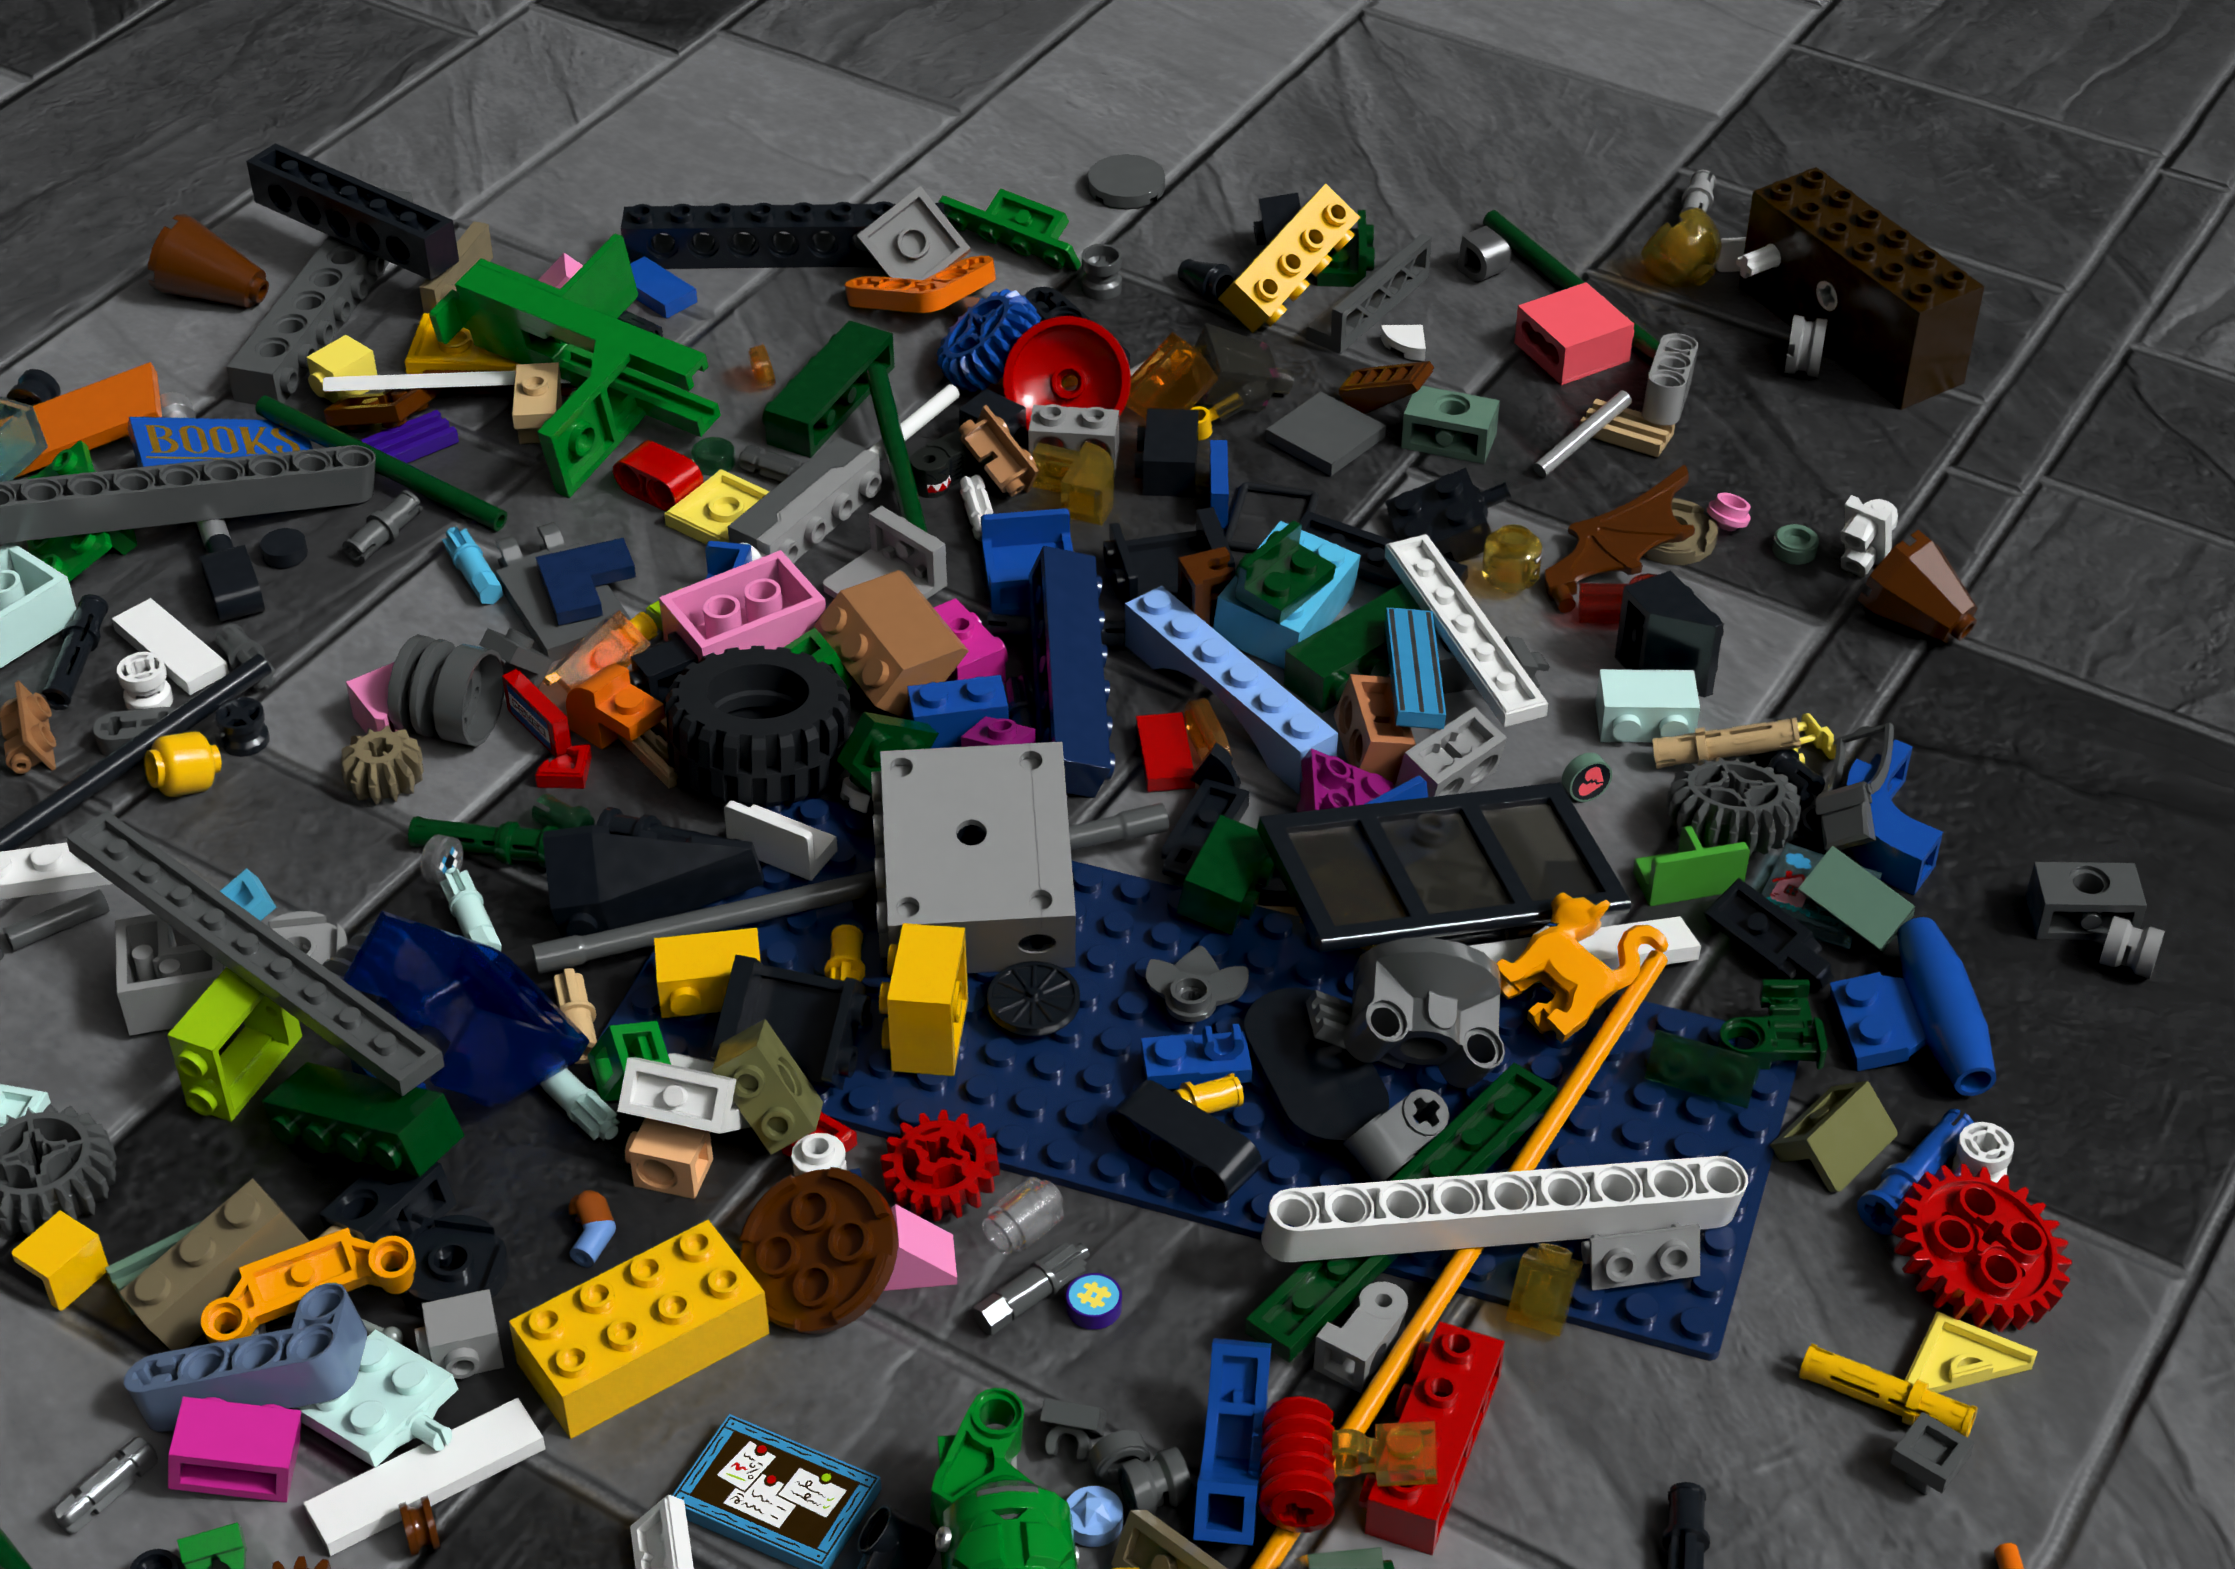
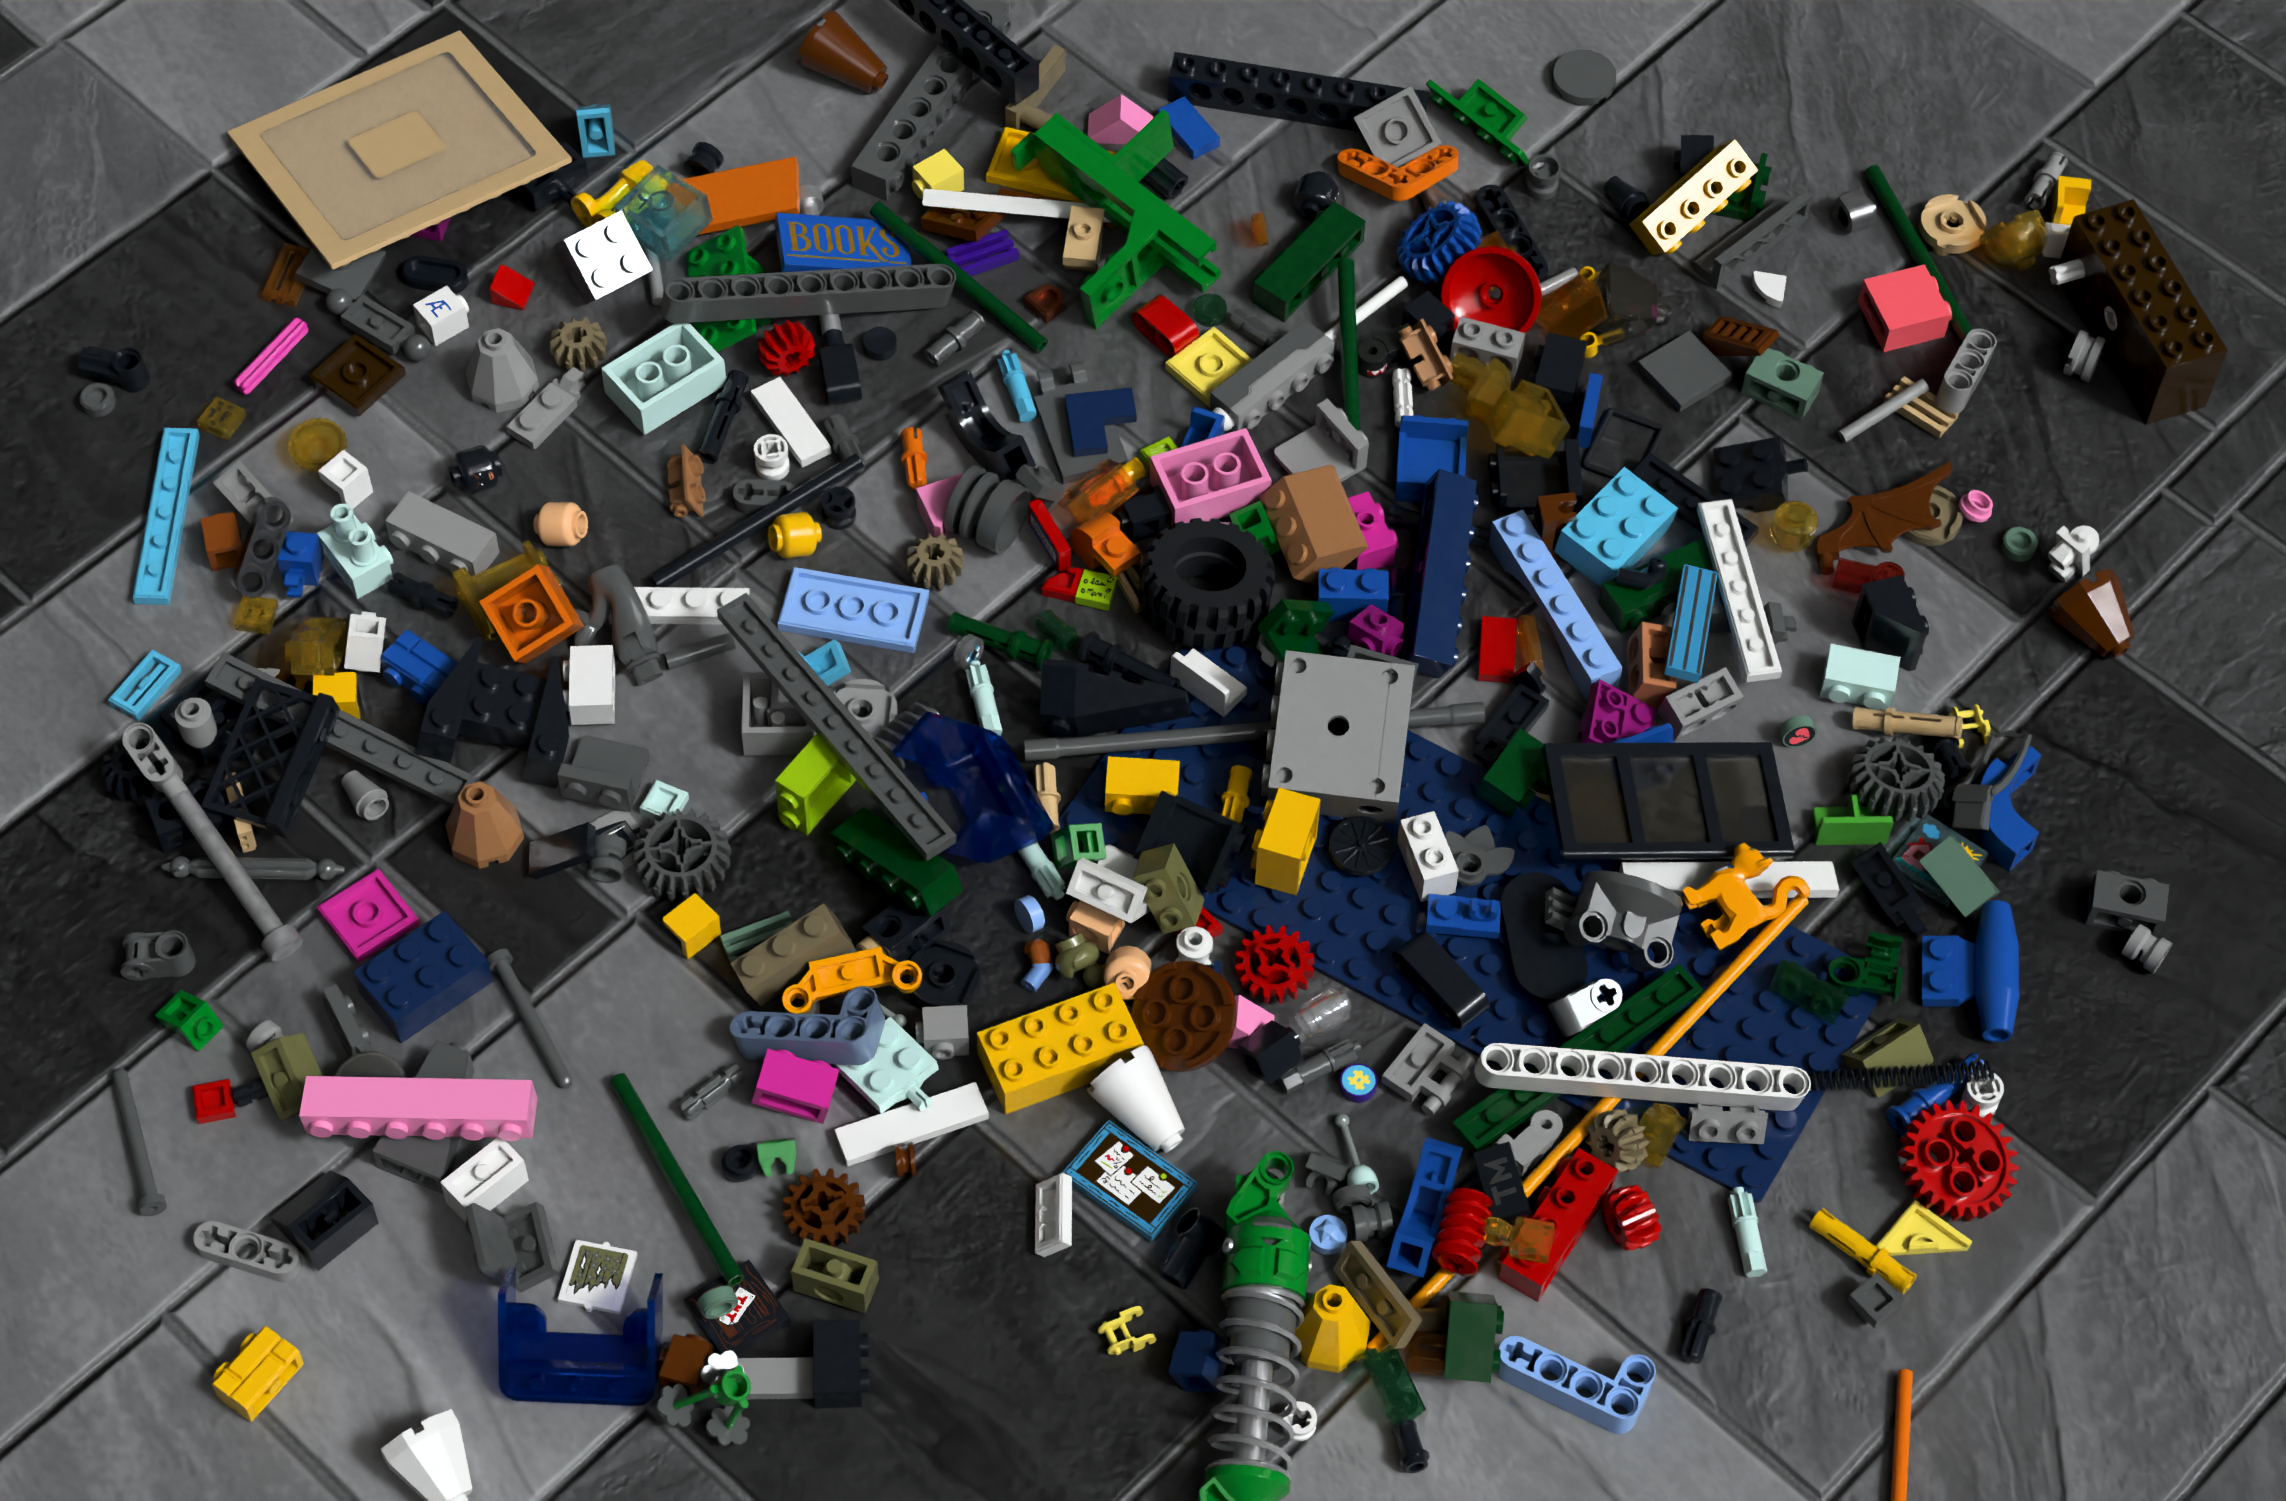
camera: 10 degrees right, 15 degrees up
(155, 561) = (786, 348): none -> red gear
(278, 839) = (853, 610): none -> light blue tile
(341, 656) = (914, 458): none -> orange axle
(418, 604) = (979, 430): none -> black arch
(498, 477) = (1045, 302): none -> copper tile
(570, 1161) = (1029, 914): none -> light blue tile
(610, 767) = (1096, 590): none -> lime tile
(648, 1200) = (1078, 954): none -> olive animal
(726, 1191) = (1128, 969): none -> light nougat head
(770, 1372) = (1140, 1100): none -> white cone
(821, 320) = (1314, 193): none -> black head
(957, 1277) = (1271, 1051): none -> black brick
(1121, 1417) = (1359, 1173): none -> hinge
(1129, 989) = (1427, 855): none -> white brick
(1144, 494) = (1528, 420): none -> clear yellow brick
(1176, 1257) = (1419, 1062): none -> light grey plate
(1213, 1094) = (1466, 948): yellow pin -> none
(1281, 575) = (1611, 524): dark green bracket -> none
(1337, 634) = (1645, 578): none -> black arm
(1338, 1380) = (1502, 1182): none -> black tile
(1493, 1300) = (1618, 1140): none -> dark tan gear
(1541, 1403) = (1631, 1217): none -> red gear
(1602, 254) = (1951, 239): none -> tan plate
(1708, 1388) = (1747, 1232): none -> light aqua piece
(1731, 208) = (2069, 199): none -> yellow panel
(1866, 1152) = (1903, 1070): none -> black piece

